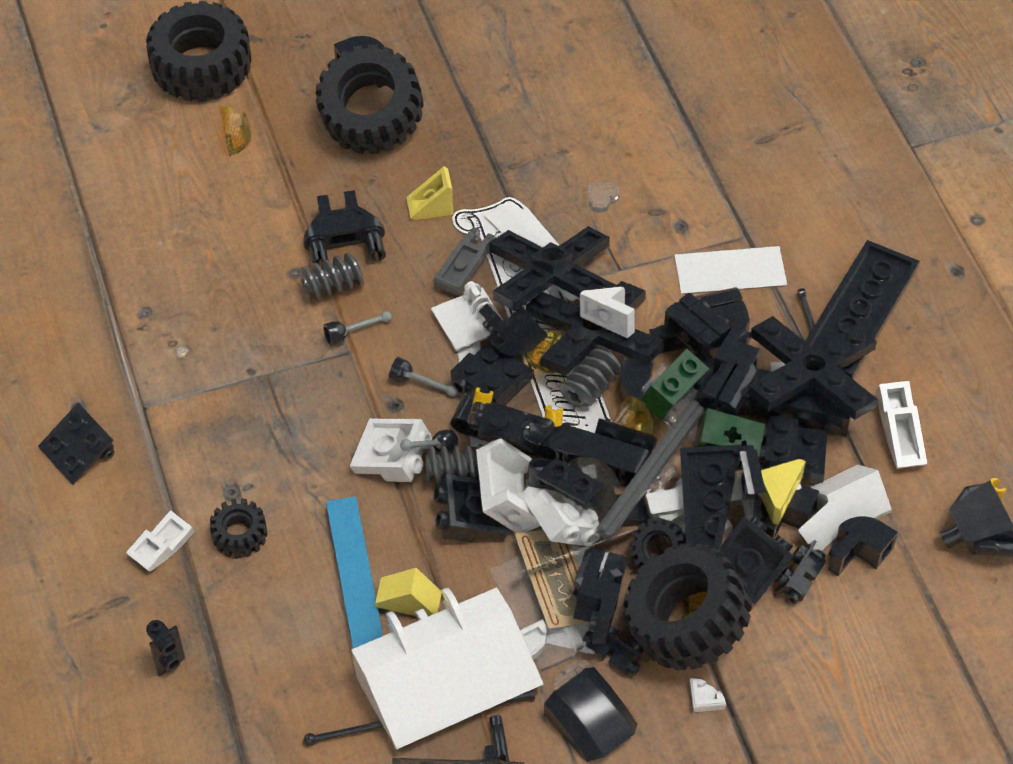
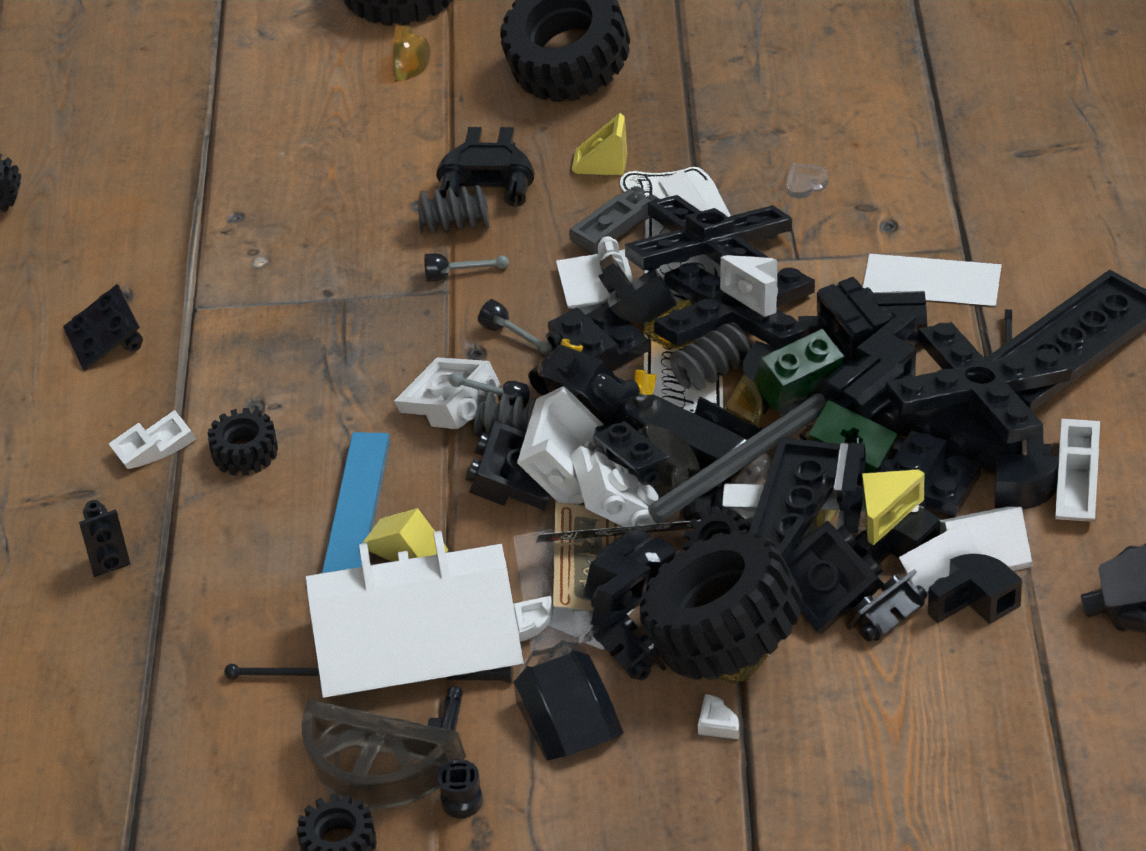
camera: 20 degrees right, 10 degrees down
(864, 440) = (1027, 478): none -> black brick

